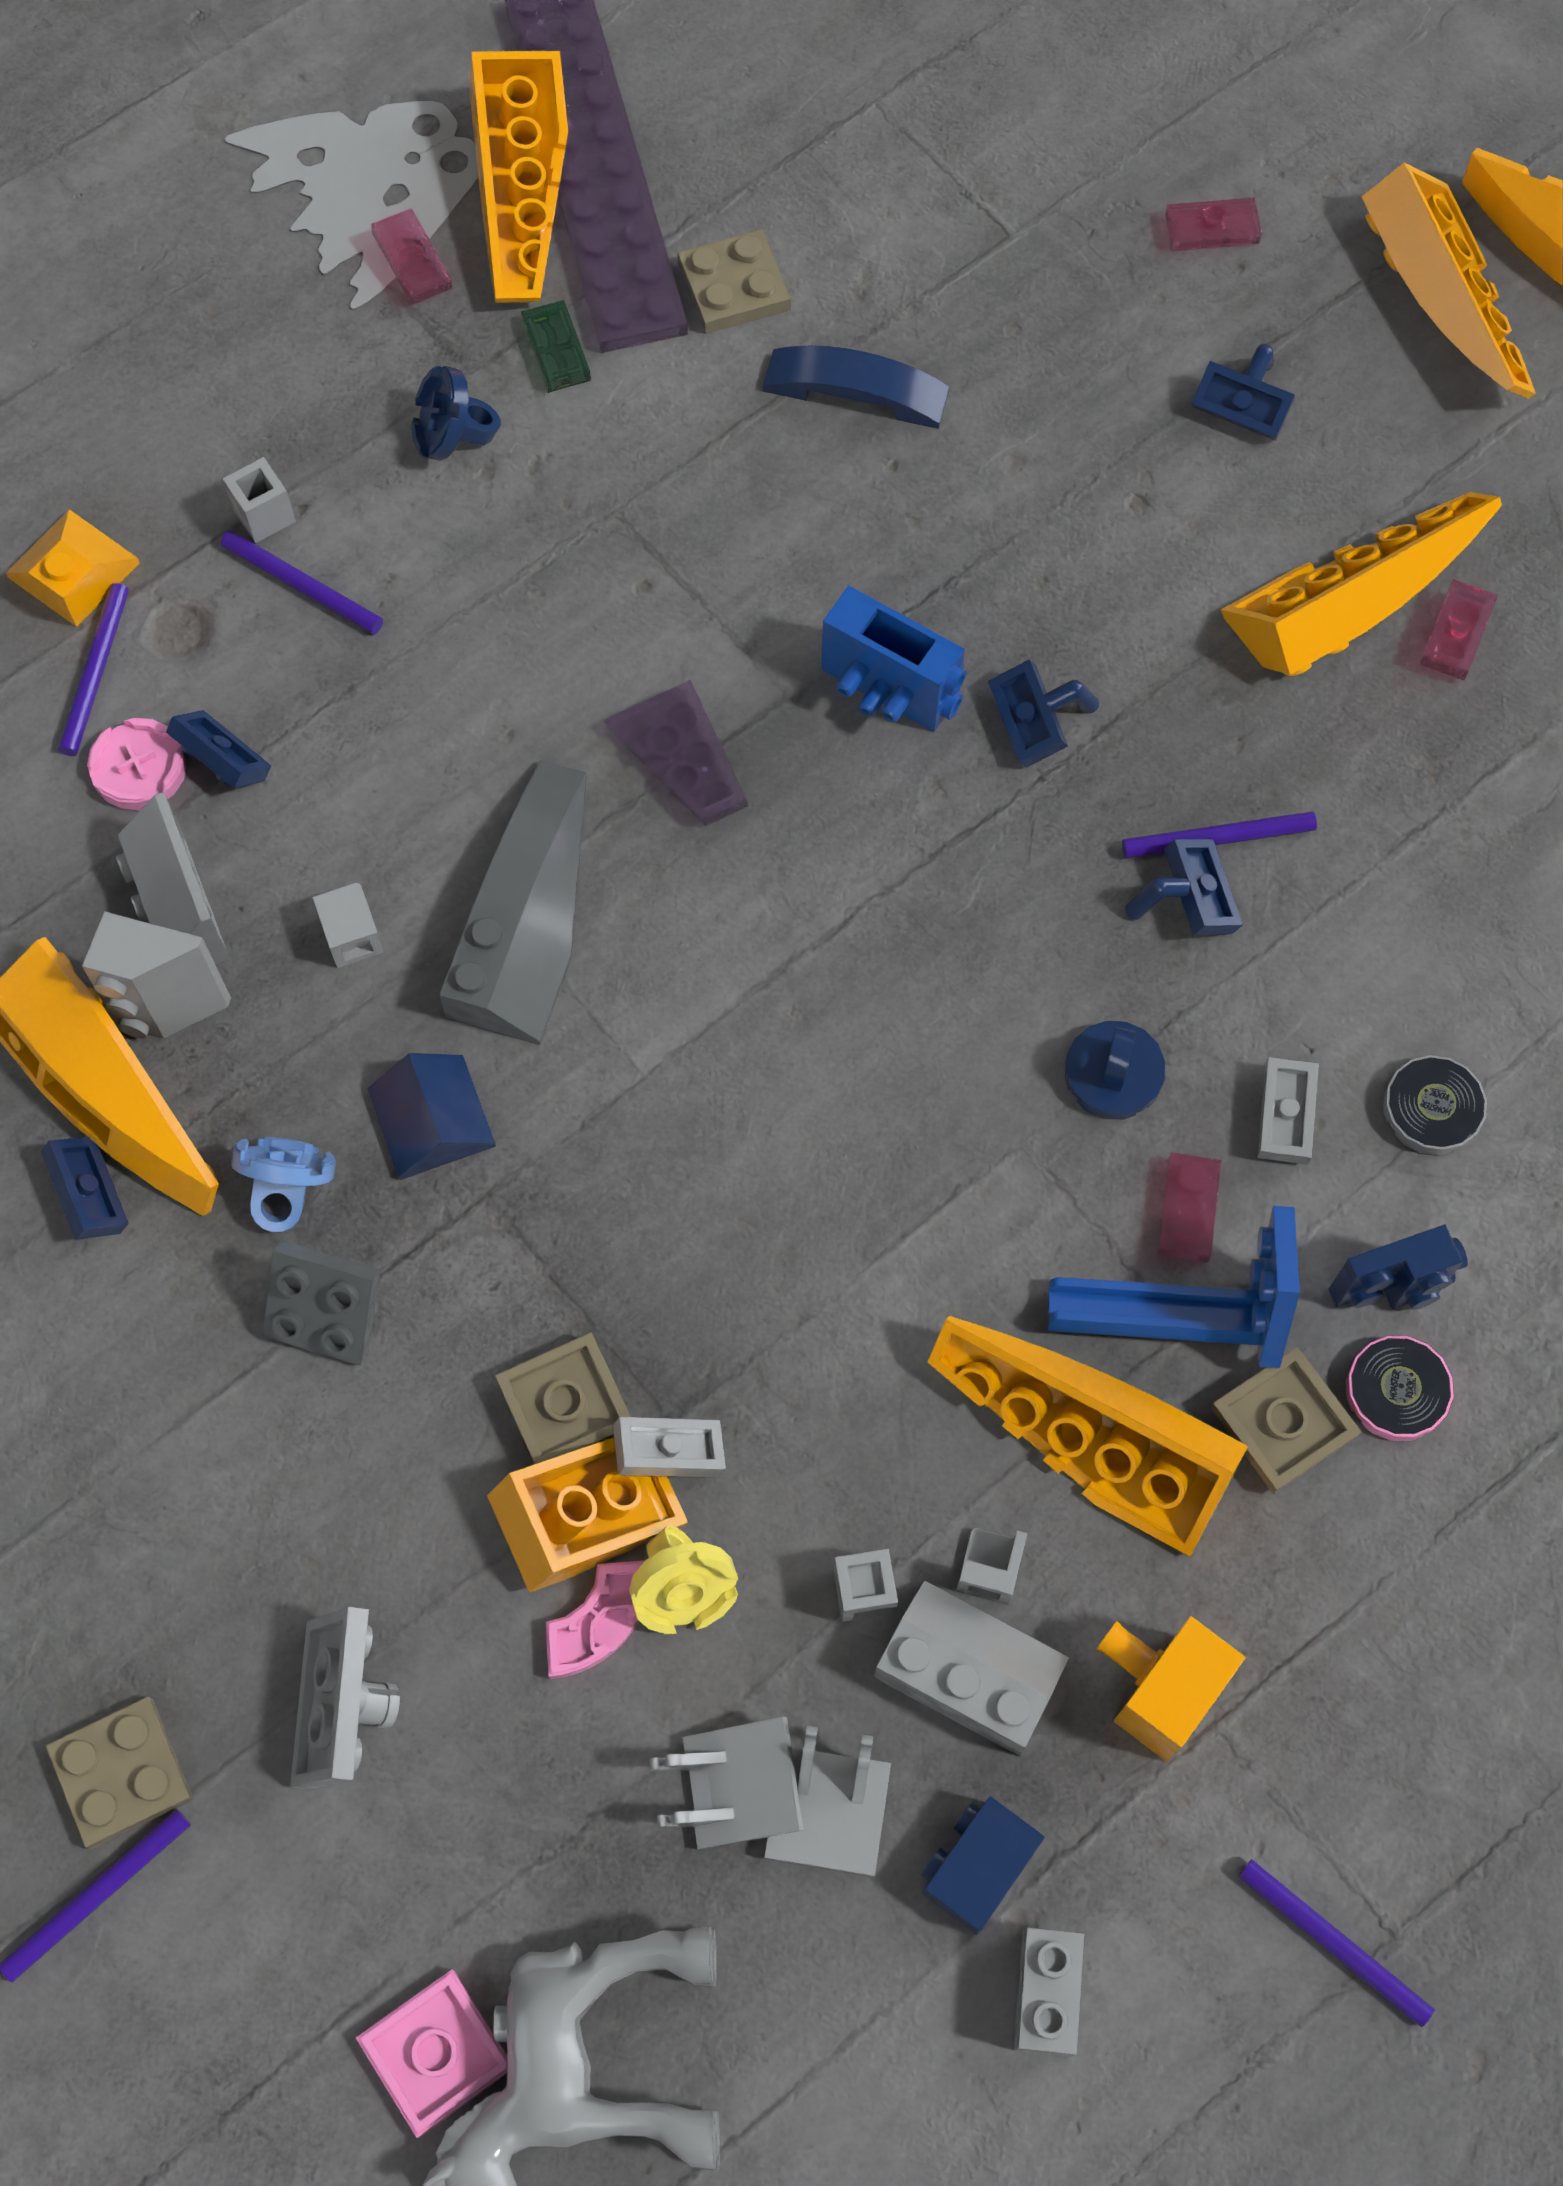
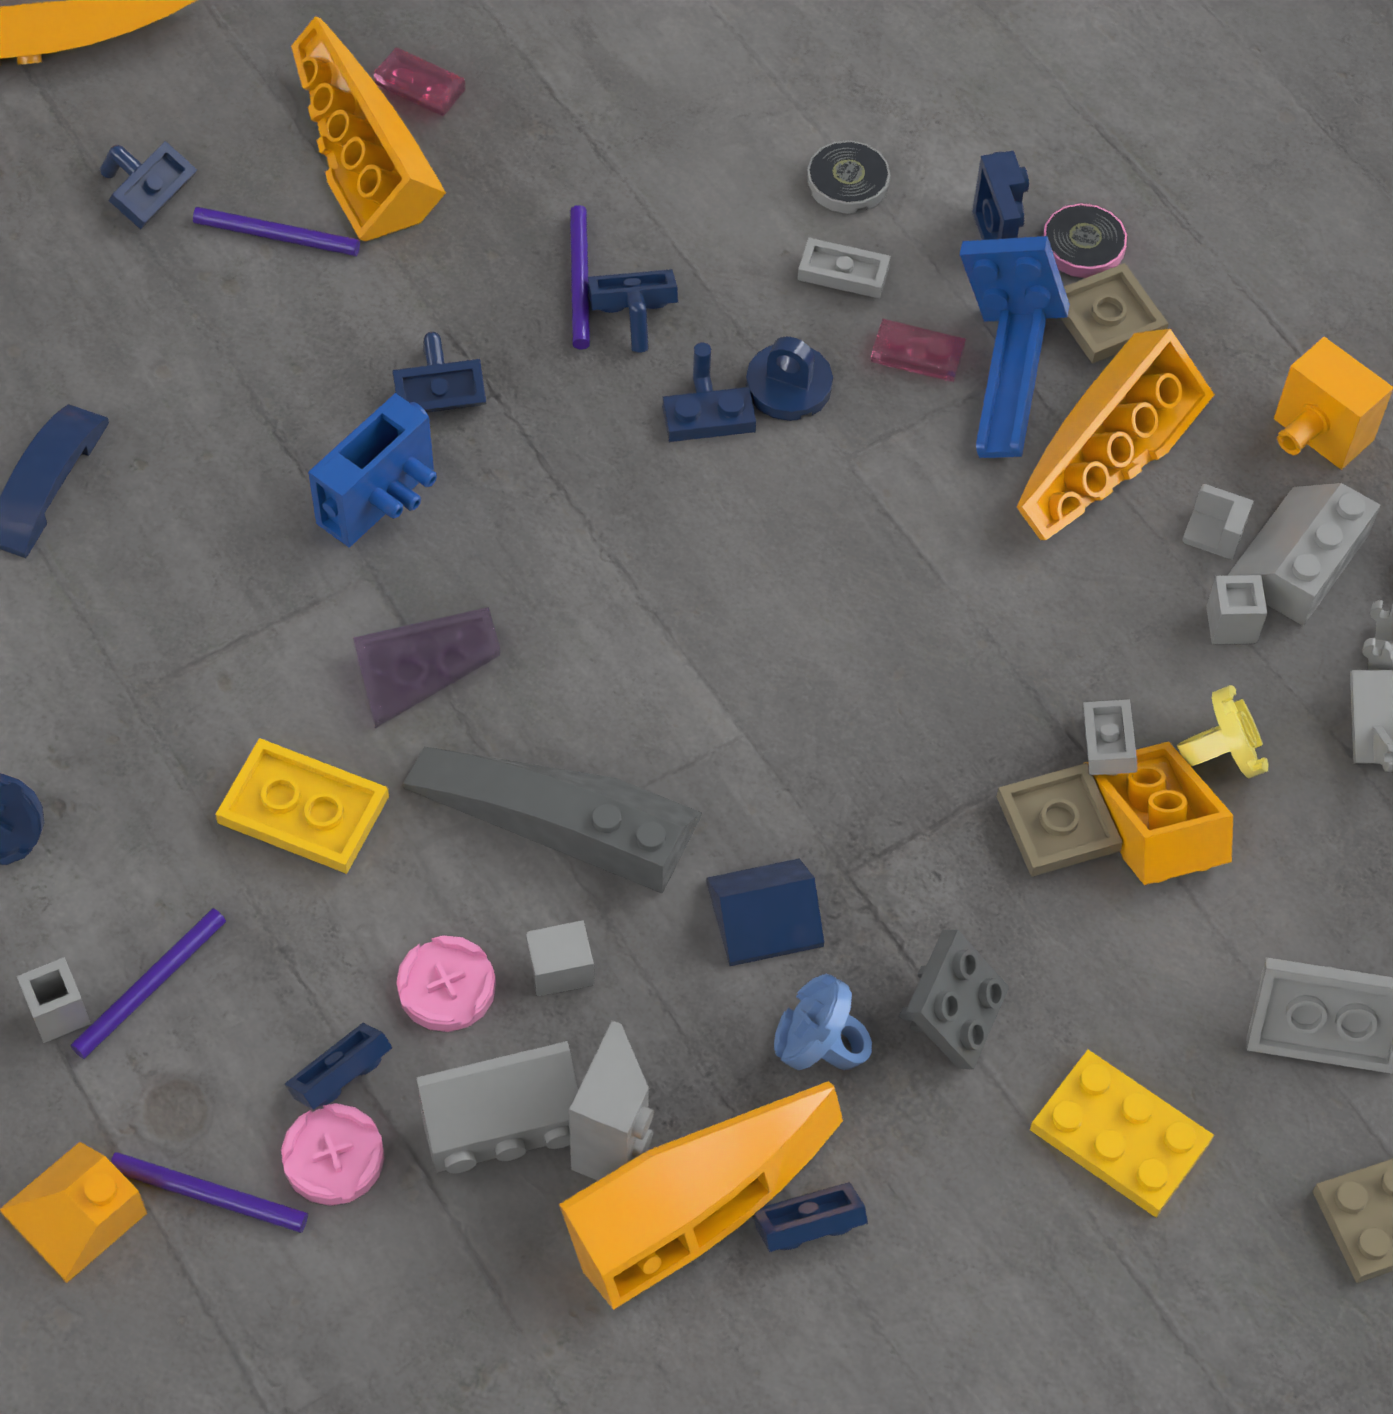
camera: 85 degrees left, 10 degrees down
(202, 1492) = (1121, 1133): none -> yellow plate
(322, 832) = (446, 984): none -> bright pink tile
(499, 673) = (302, 805): none -> yellow plate
(595, 1626) = (1257, 819): bright pink tile -> none
(1055, 989) = (708, 411): none -> dark blue plate
(1215, 530) = (276, 231): none -> dark purple bar

